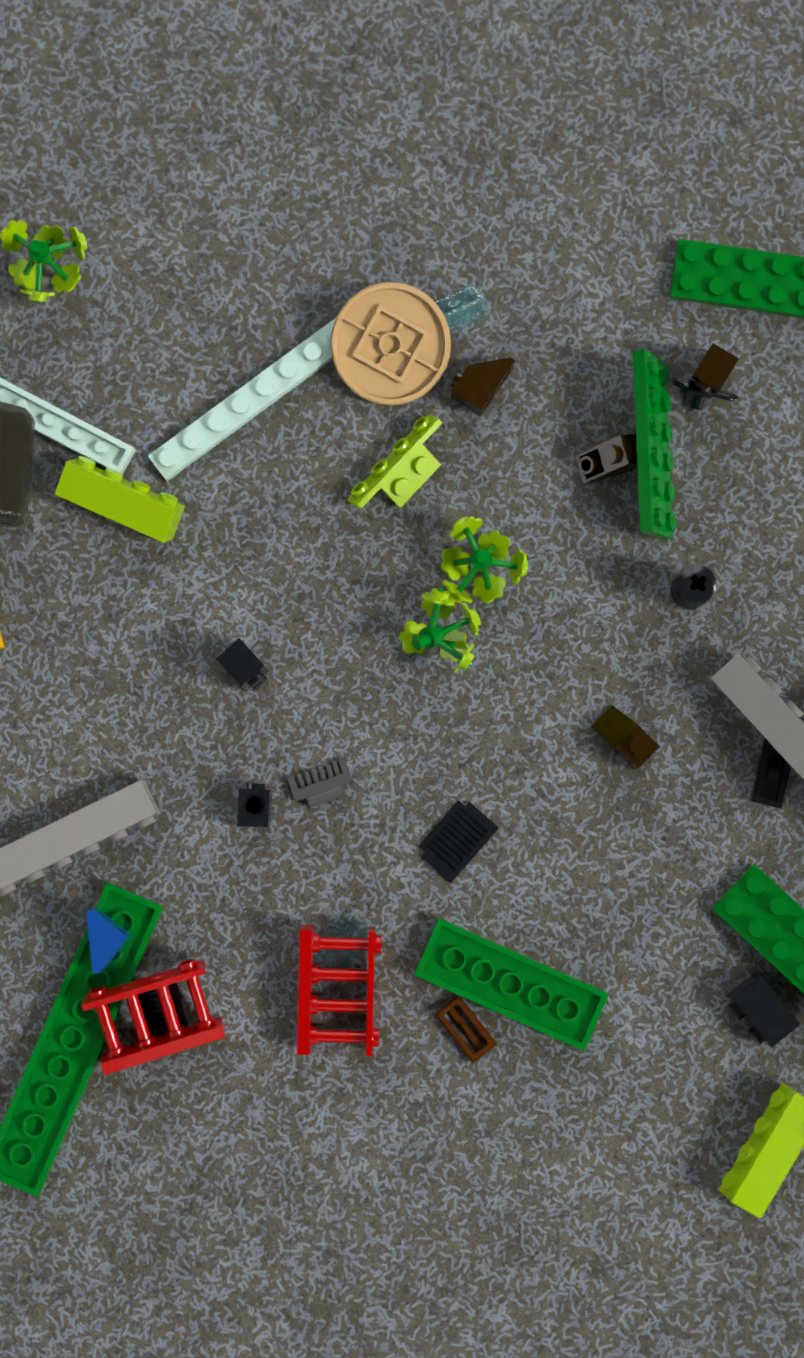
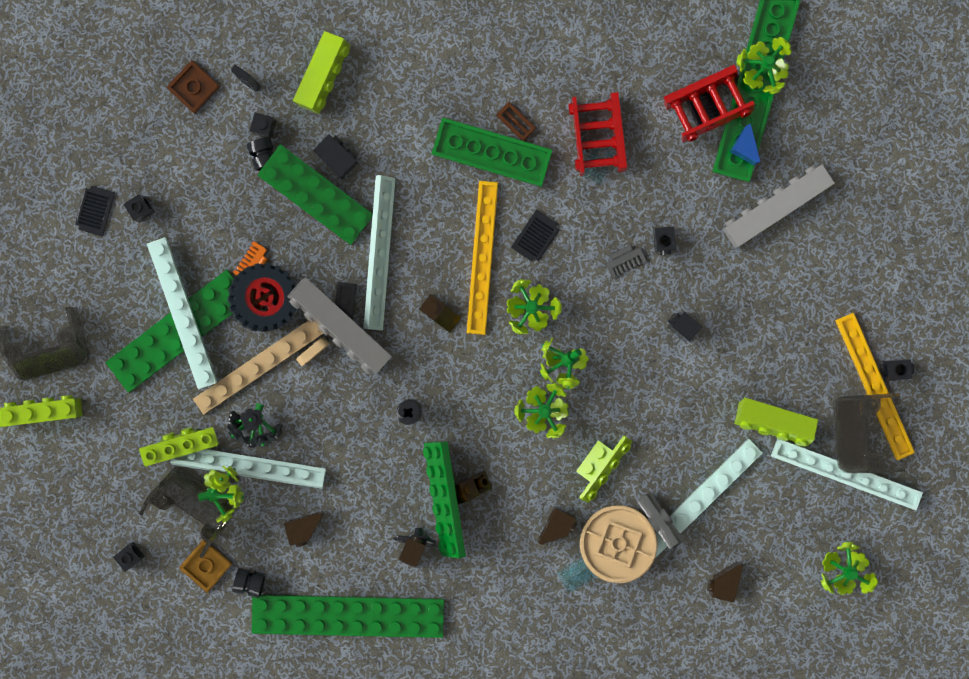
camera: 165 degrees right, 5 degrees up
(62, 1082) = (776, 70): none -> lime plant
(232, 265) = (726, 583): none -> dark brown slope
(321, 370) = (660, 520): none -> dark grey piece
(498, 732) = (537, 298): none -> lime plant
(546, 817) = (482, 257): none -> yellow tile
(710, 846) = (379, 252): none -> light aqua plate

